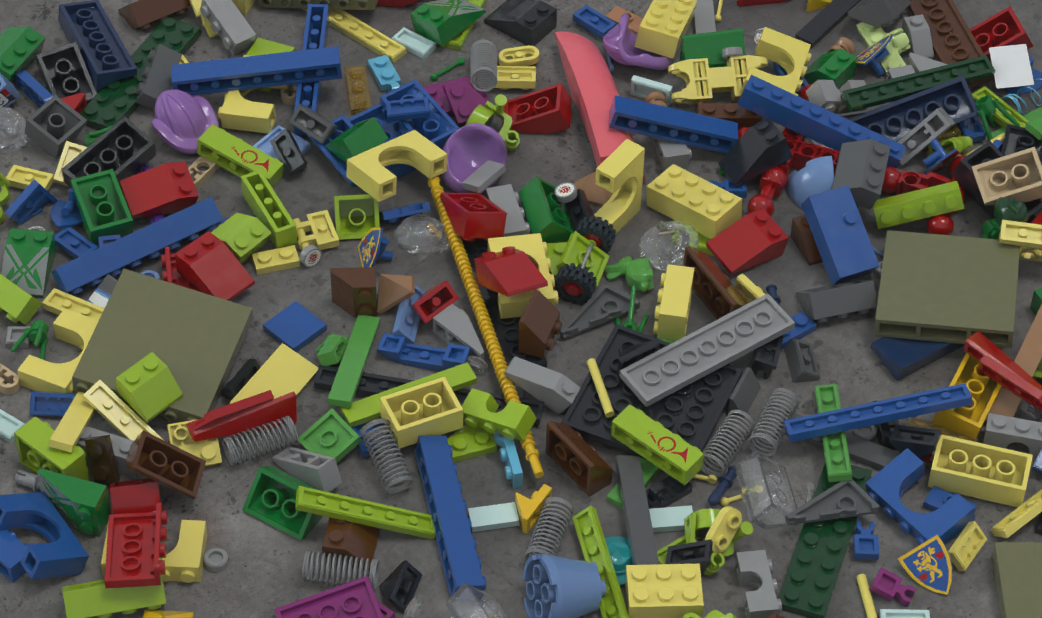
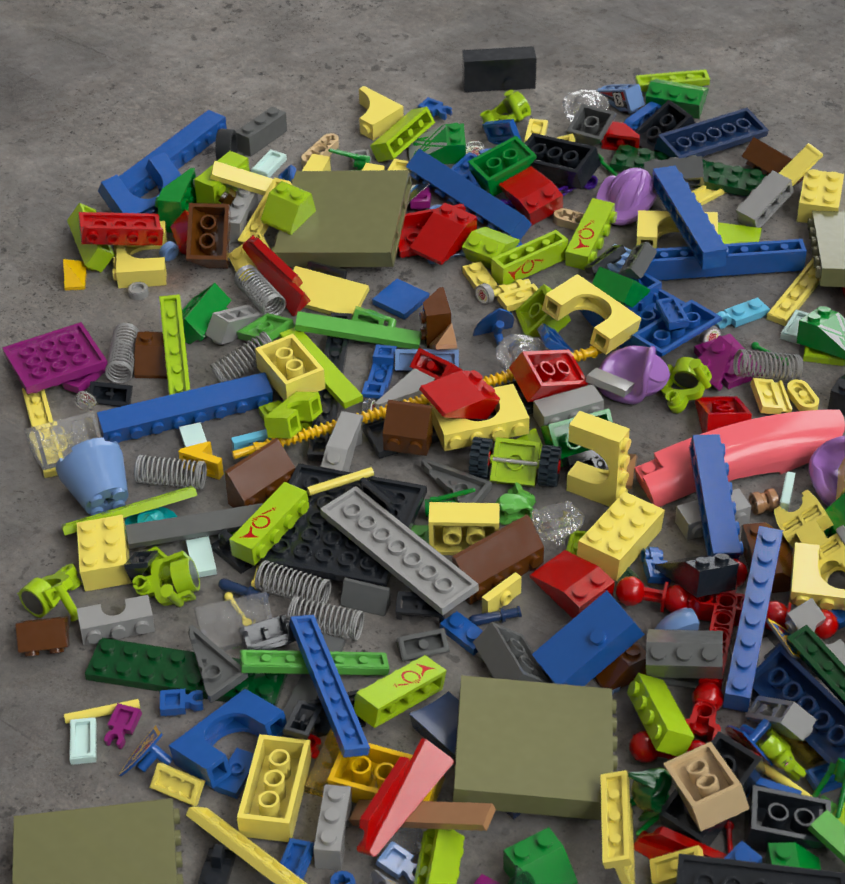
camera: 85 degrees right, 5 degrees down
(357, 89) = (720, 298): clear yellow plate -> none
(724, 528) = (167, 574): light yellow plate -> none
(793, 467) = (267, 634): none -> hinge
(874, 370) = (399, 691): none -> lime brick

